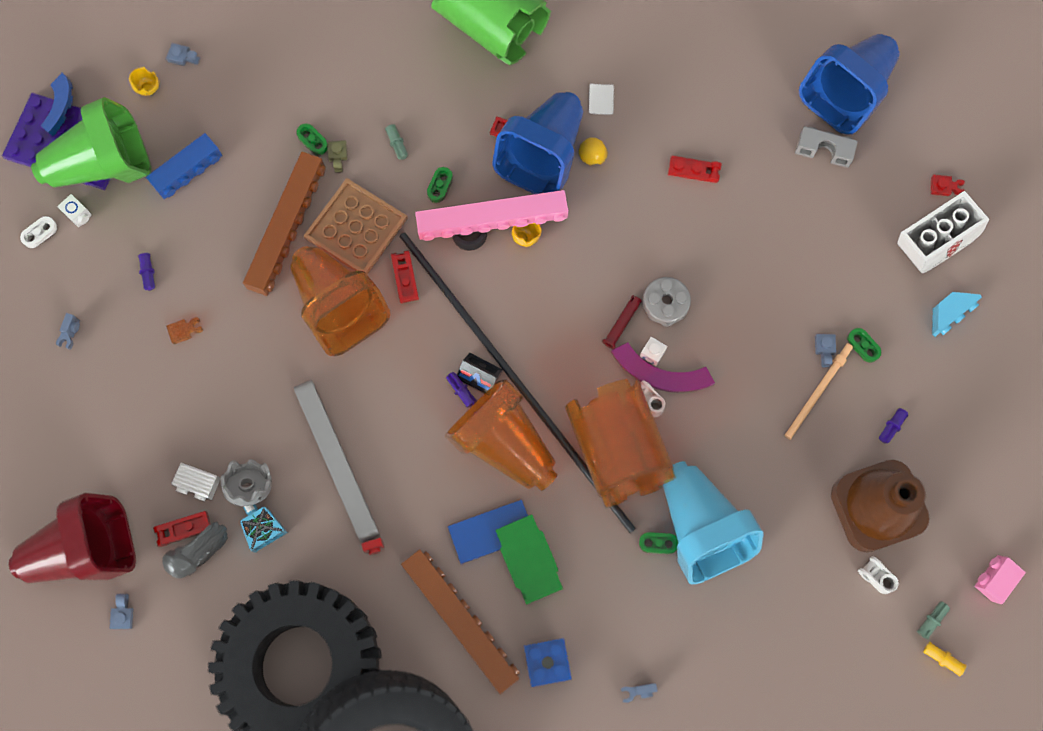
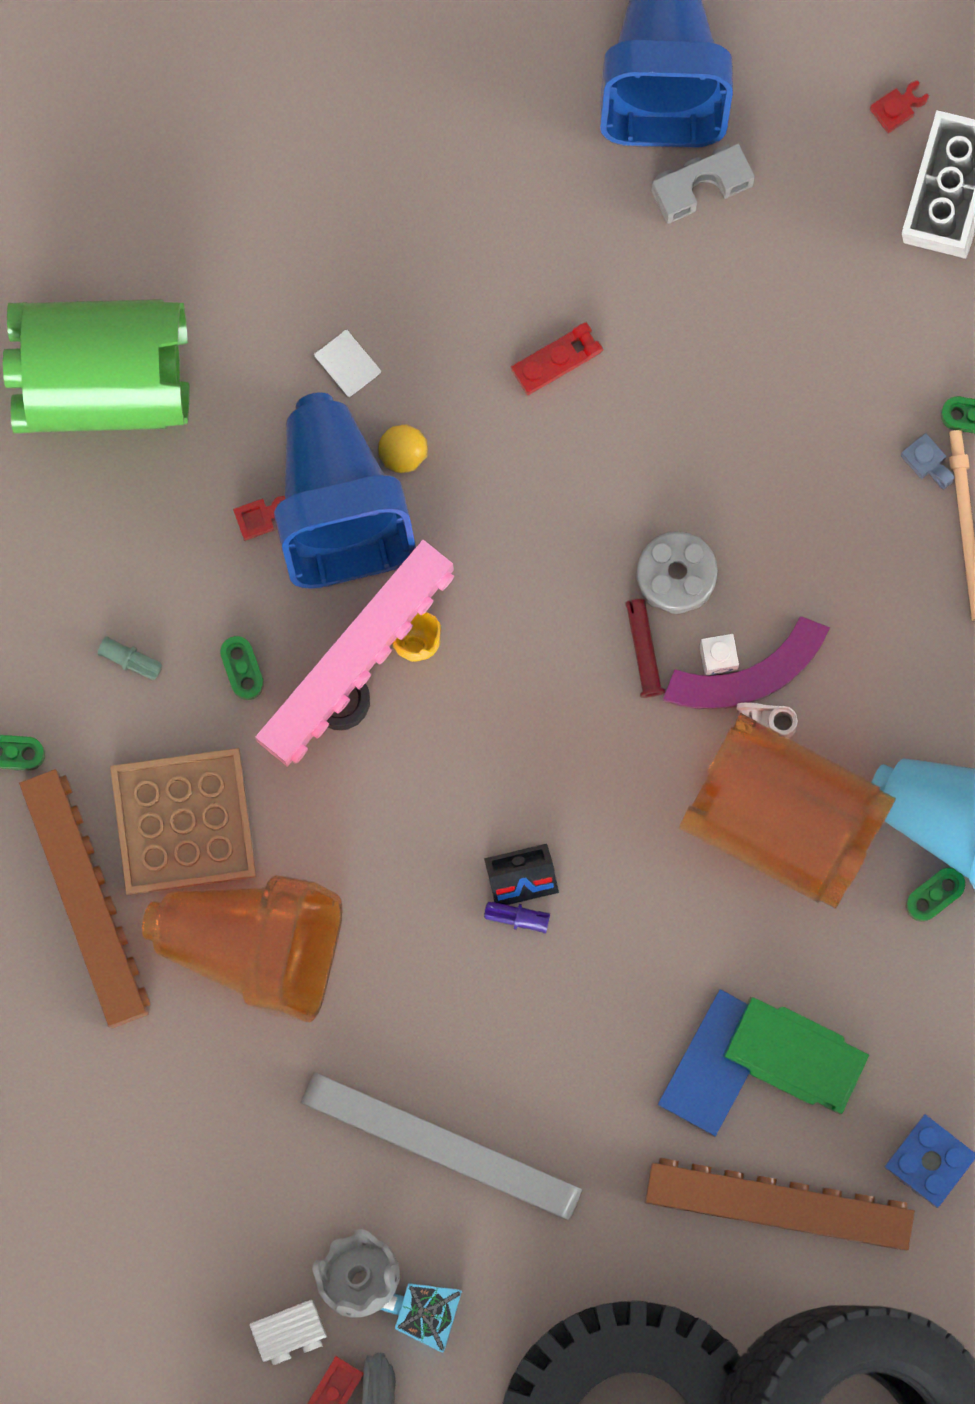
camera: 40 degrees left, 5 degrees up
(182, 330) = (79, 1159): clear orange plate -> none
(337, 153) = (62, 741): olive plate -> none
(373, 546) = (589, 1211): red plate -> none
(404, 277) = (309, 832): red plate -> none
(504, 437) = (629, 930): clear orange cone -> none
(509, 372) = (547, 837): black piece -> none

